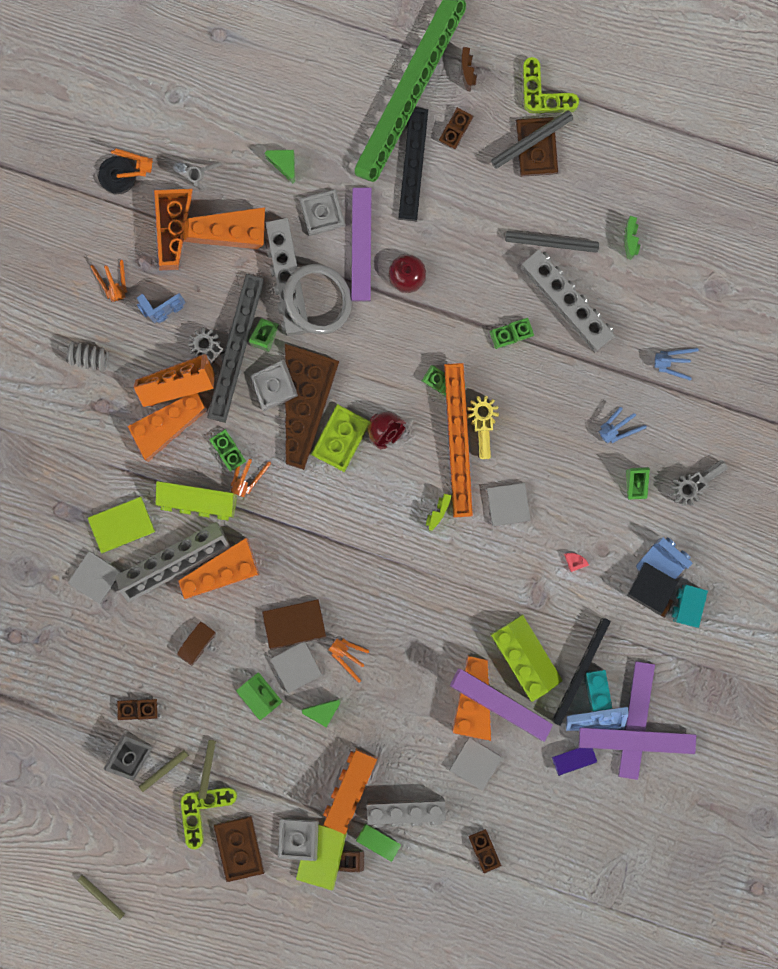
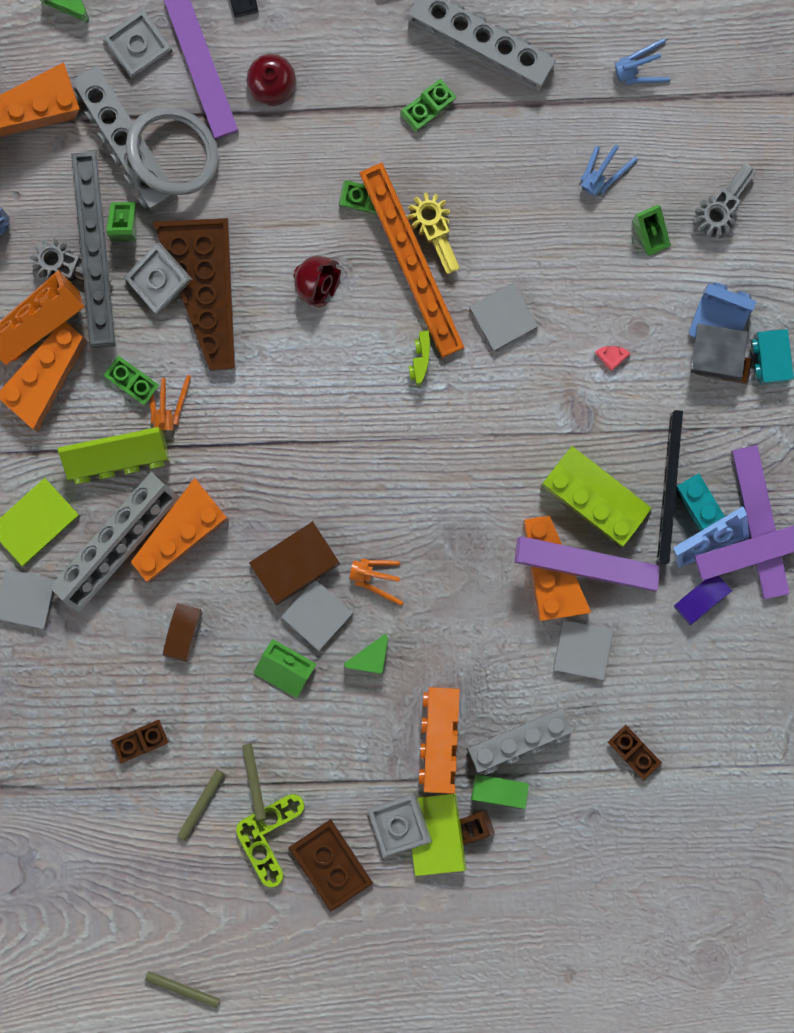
camera: 20 degrees left, 0 degrees up
(128, 756) = (150, 803): flat silver slope -> none
(340, 438) = (265, 313): lime tile -> none

